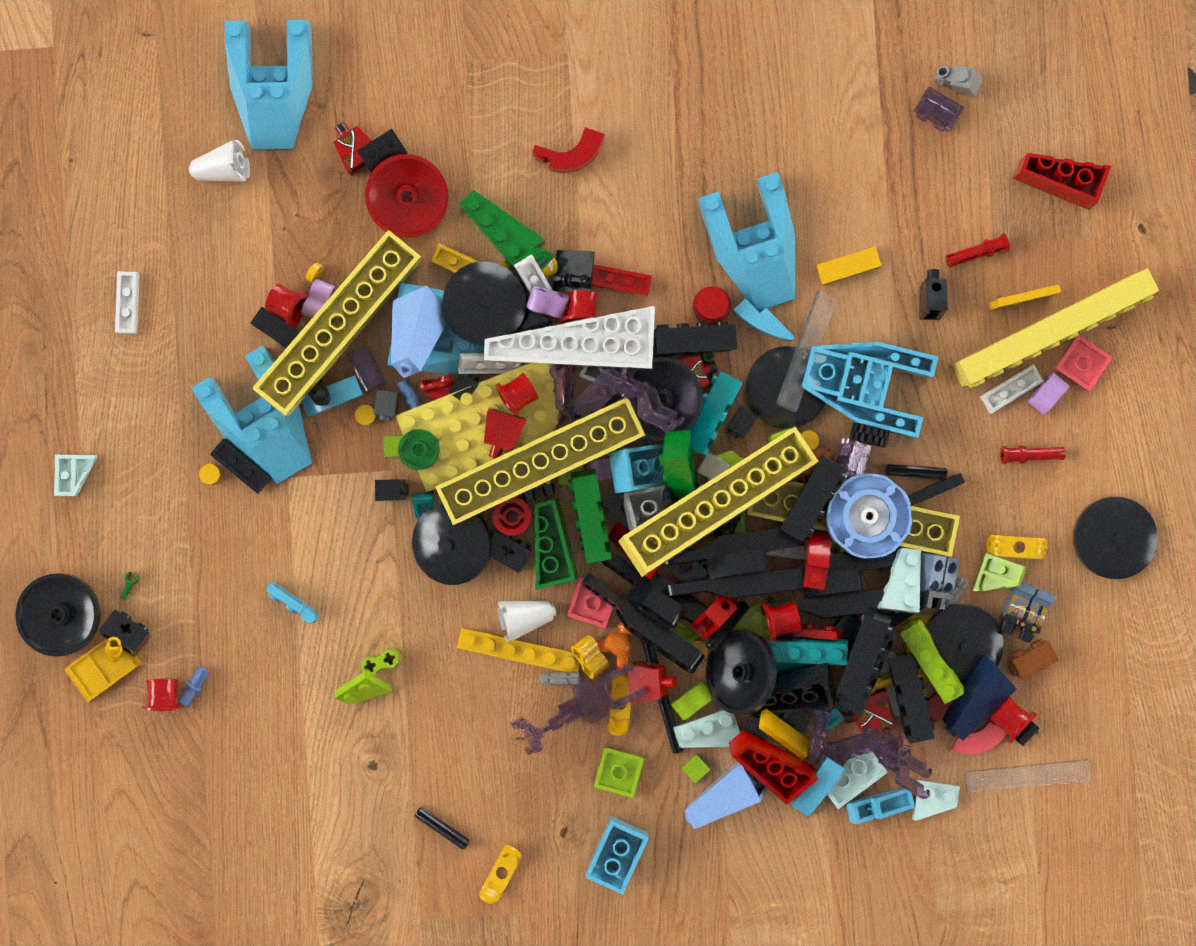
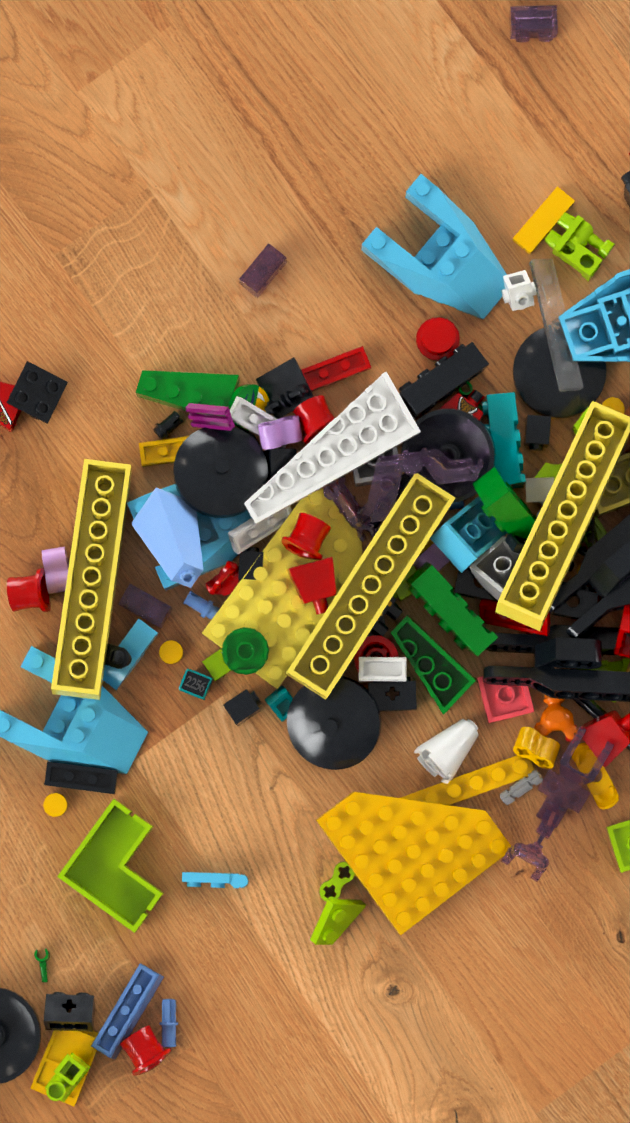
camera: 25 degrees left, 5 degrees down
(88, 681) = (66, 1077): none -> lime hips
(113, 649) = (70, 1032): yellow pin -> none
(168, 658) = (127, 1011): none -> medium blue slope
(212, 546) = (101, 871): none -> lime piece
(274, 327) = (32, 623): black tile -> none
(314, 272) = (36, 545): yellow tile -> none
(368, 450) = (195, 684): none -> slope
(386, 404) = (185, 629): dark grey brick -> none
(406, 195) = (80, 416): red dish -> none
(442, 828) = (499, 1008): black axle -> none
(448, 674) = (411, 850): none -> yellow plate
(469, 243) = (168, 425): none -> black pin
(494, 886) = (586, 1033): yellow piece -> none
(501, 257) = (210, 418): none -> magenta tile
(510, 528) = (383, 669): none -> white tile
(574, 159) = (218, 283): red arch -> none
(613, 171) = (263, 270): none -> clear purple brick
(763, 322) = (497, 324): medium azure slope -> none
(795, 307) = (518, 290): none -> white brick
(858, 297) = (572, 245): none -> lime hips

